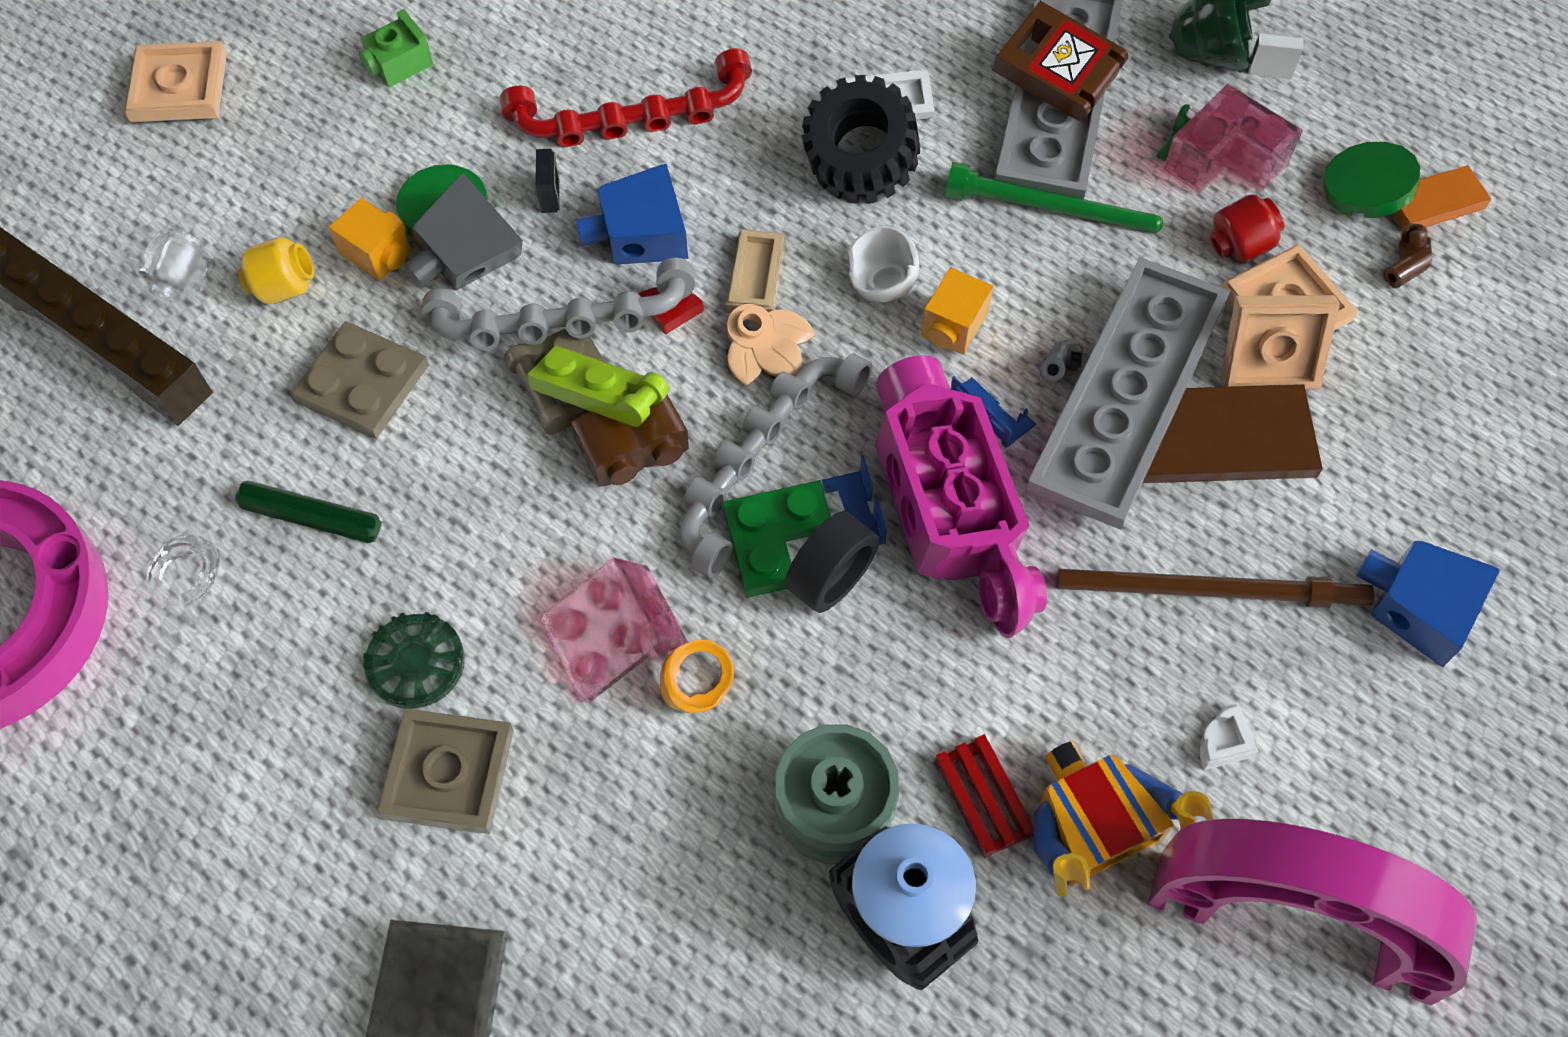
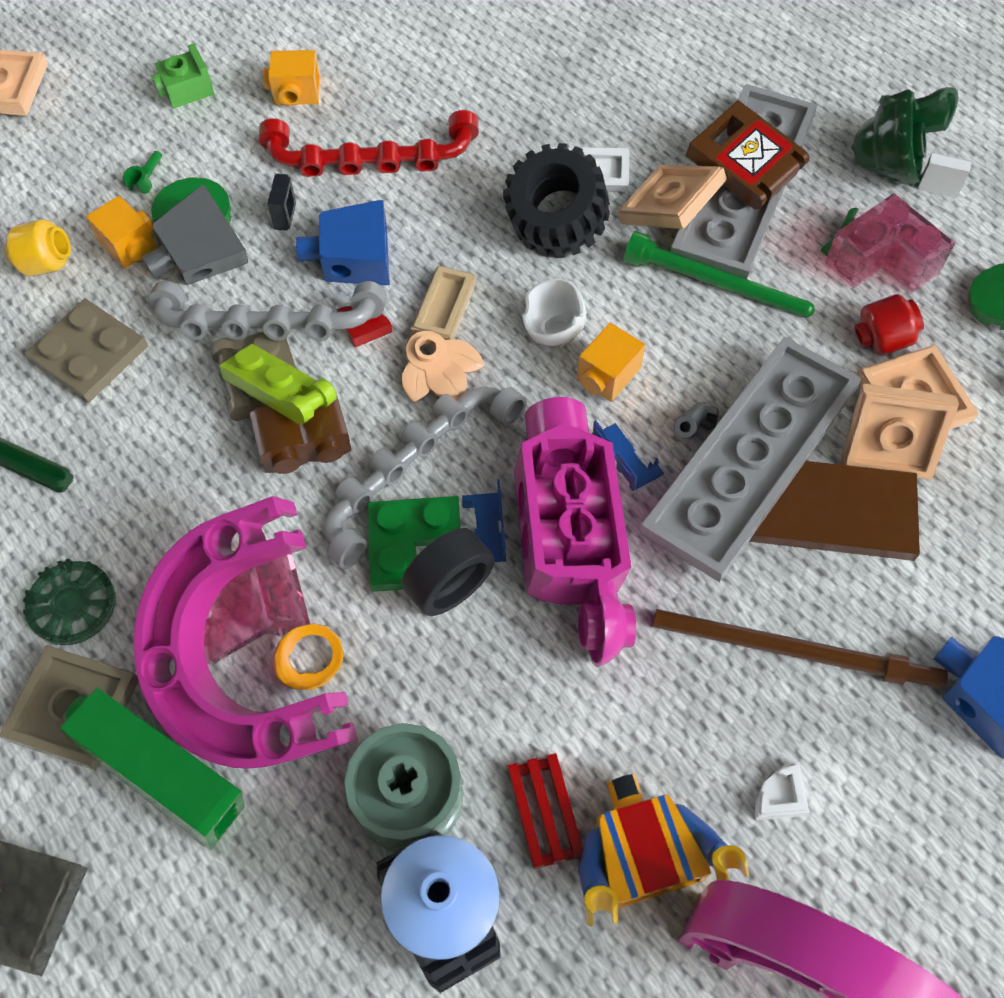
camera: 10 degrees right, 0 degrees up
(374, 168) = (142, 174): none -> green hand
(525, 34) = (293, 77): none -> light orange brick
(545, 664) = (173, 626): none -> dark pink piece
(563, 814) = (154, 766): none -> green slope
(985, 117) = (672, 196): none -> light nougat plate

